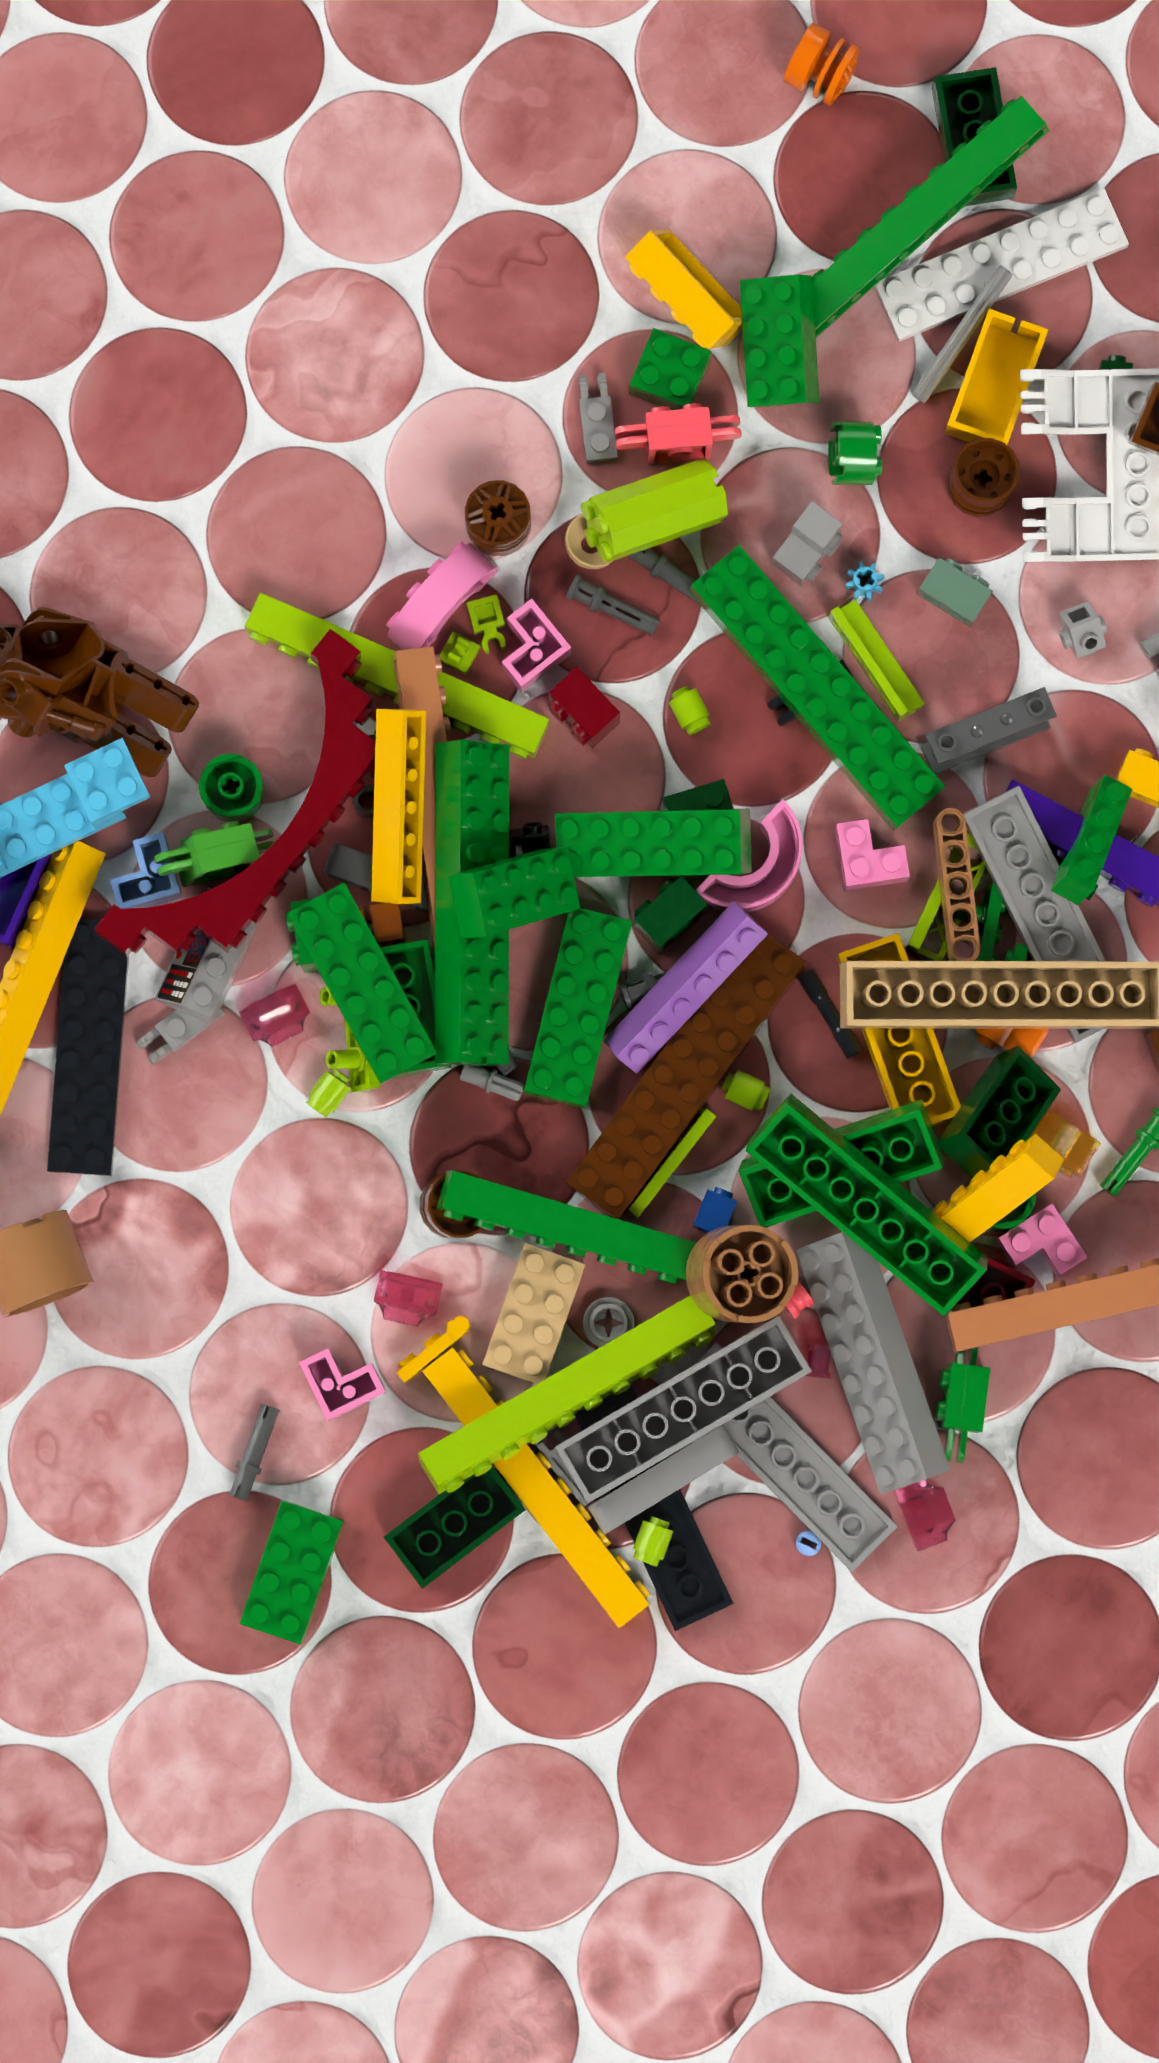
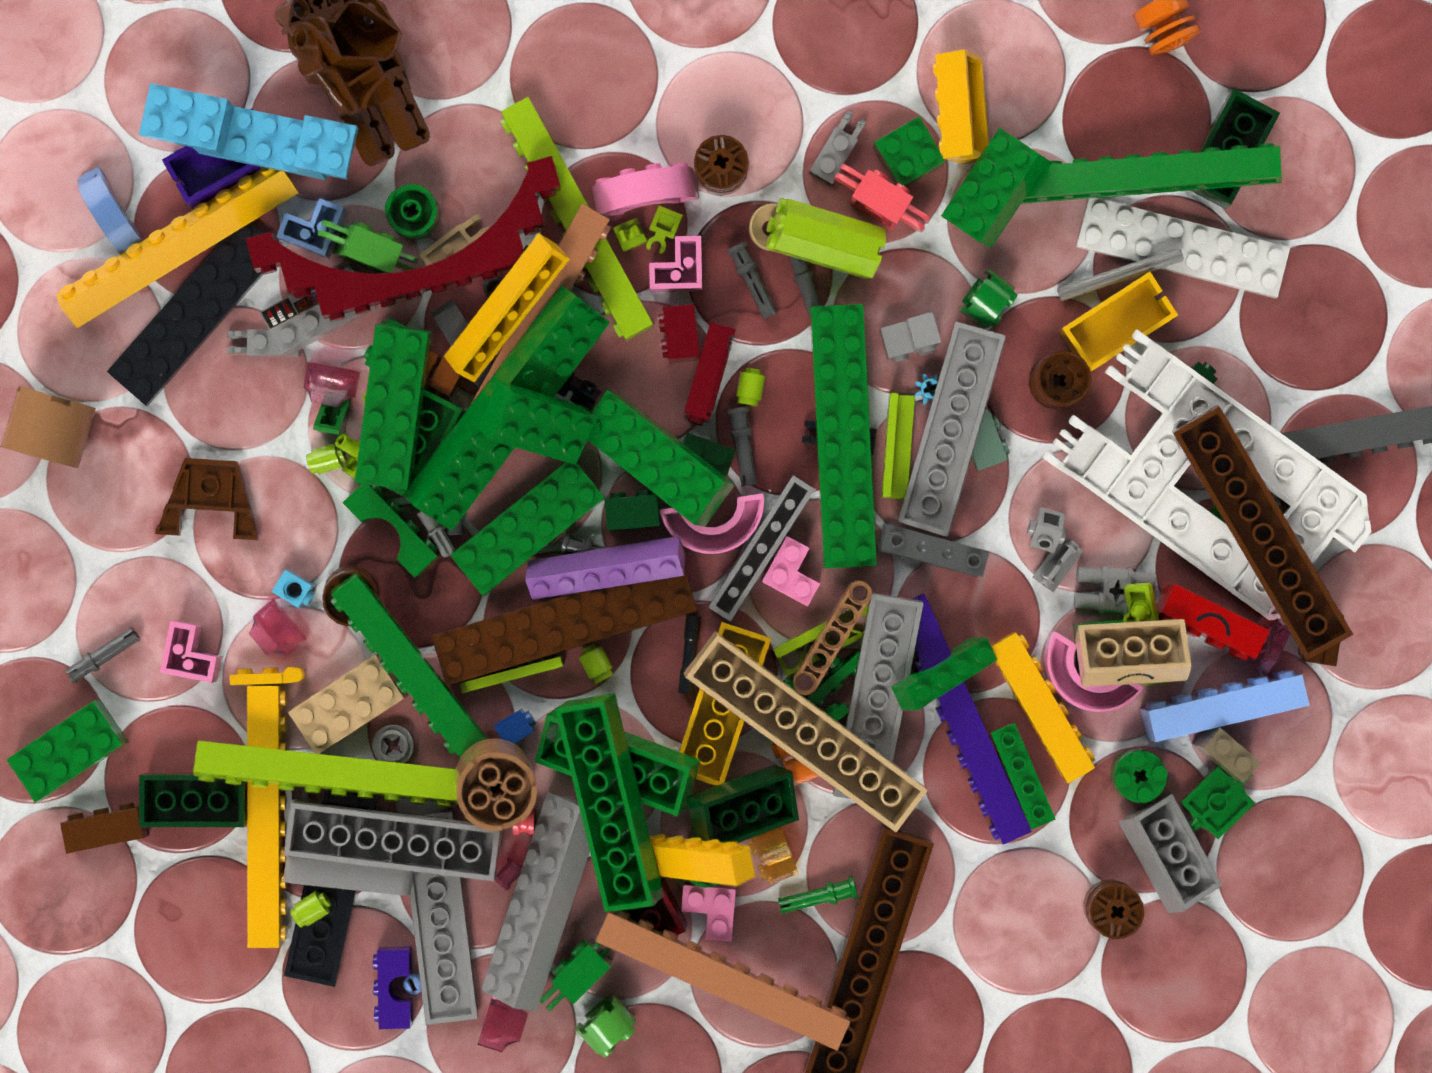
camera: 40 degrees right, 5 degrees up
(236, 1206) = (209, 486): none -> reddish brown wing
(293, 788) = (452, 241): none -> tan hinge
(305, 1048) = (332, 418): none -> green slope
(381, 1238) = (283, 586): none -> medium azure brick
(385, 1621) = (102, 828): none -> reddish brown brick
(405, 1104) = (414, 551): none -> green arch
(641, 726) = (709, 374): none -> dark red door
(715, 762) = (741, 433): none -> dark grey pin
(807, 1584) = (392, 1010): none -> dark purple arch
(821, 855) = (761, 548): none -> light grey brick
(916, 600) = (952, 428): none -> light grey plate
(1030, 1434) = (607, 1025): none -> bright green brick
(1118, 656) = (1058, 564): none -> light grey hinge

